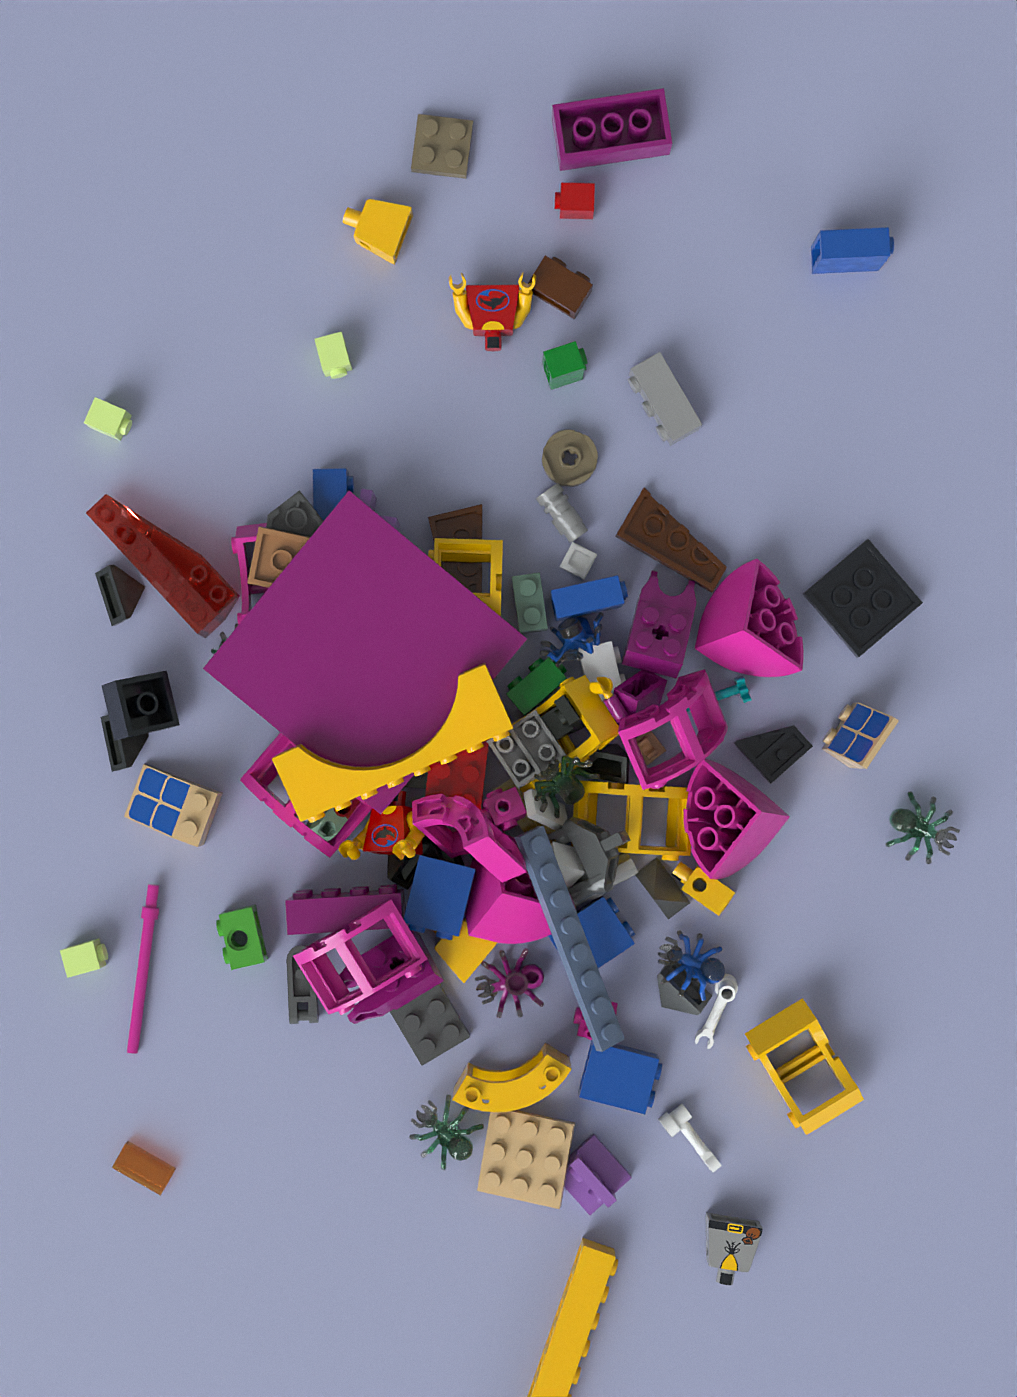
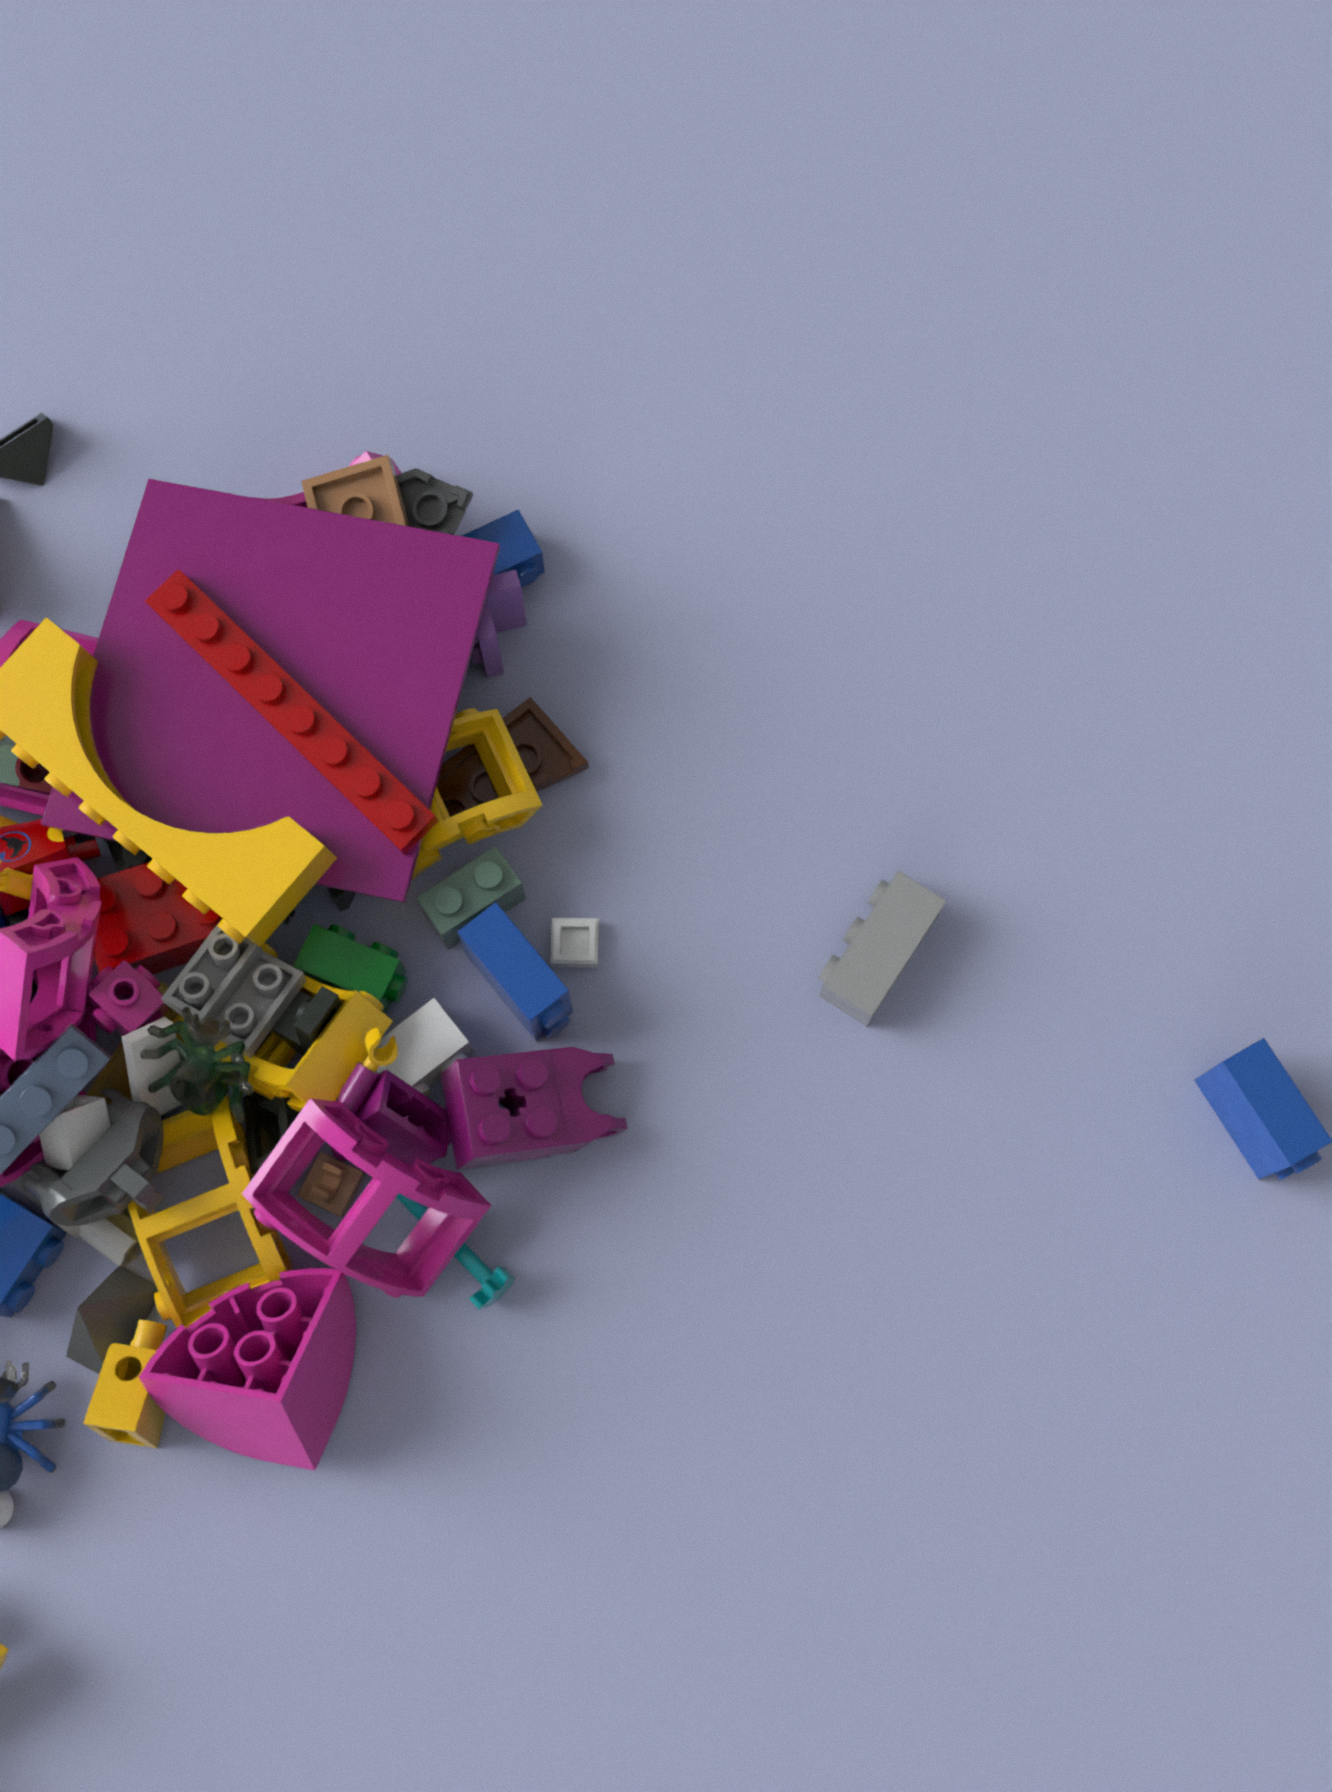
camera: 60 degrees right, 15 degrees down
(108, 419) = (459, 240): yellowish green brick -> none
(119, 593) = (229, 359): pearl dark grey slope -> none
(140, 705) = (70, 439): black brick -> none
(169, 565) = (287, 394): clear red wedge -> none
(333, 355) = (697, 471): yellowish green brick -> none
(380, 227) = (908, 452): yellow torso -> none
(388, 650) = (292, 712): none -> red plate
(442, 146) = (1066, 481): dark tan plate -> none
(492, 309) = (878, 645): torso -> none
(561, 286) = (963, 722): reddish brown brick -> none
(564, 365) = (849, 773): green brick -> none
(564, 515) = (632, 883): light grey axle -> none
(572, 635) = (453, 983): animal -> none
(575, 200) = (1097, 685): red brick -> none
(576, 444) = (720, 881): dark tan plate -> none
(611, 129) = (1226, 681): magenta brick -> none
(667, 541) = (670, 1054): reddish brown wing -> none
(751, 625) = (599, 1250): dark pink brick -> none
(774, 750) = (417, 1392): black wing -> none
(858, 735) = (498, 1515): slope -> none
(862, 598) = (735, 1414): black plate -> none
(919, 827) = (394, 1709): animal -> none

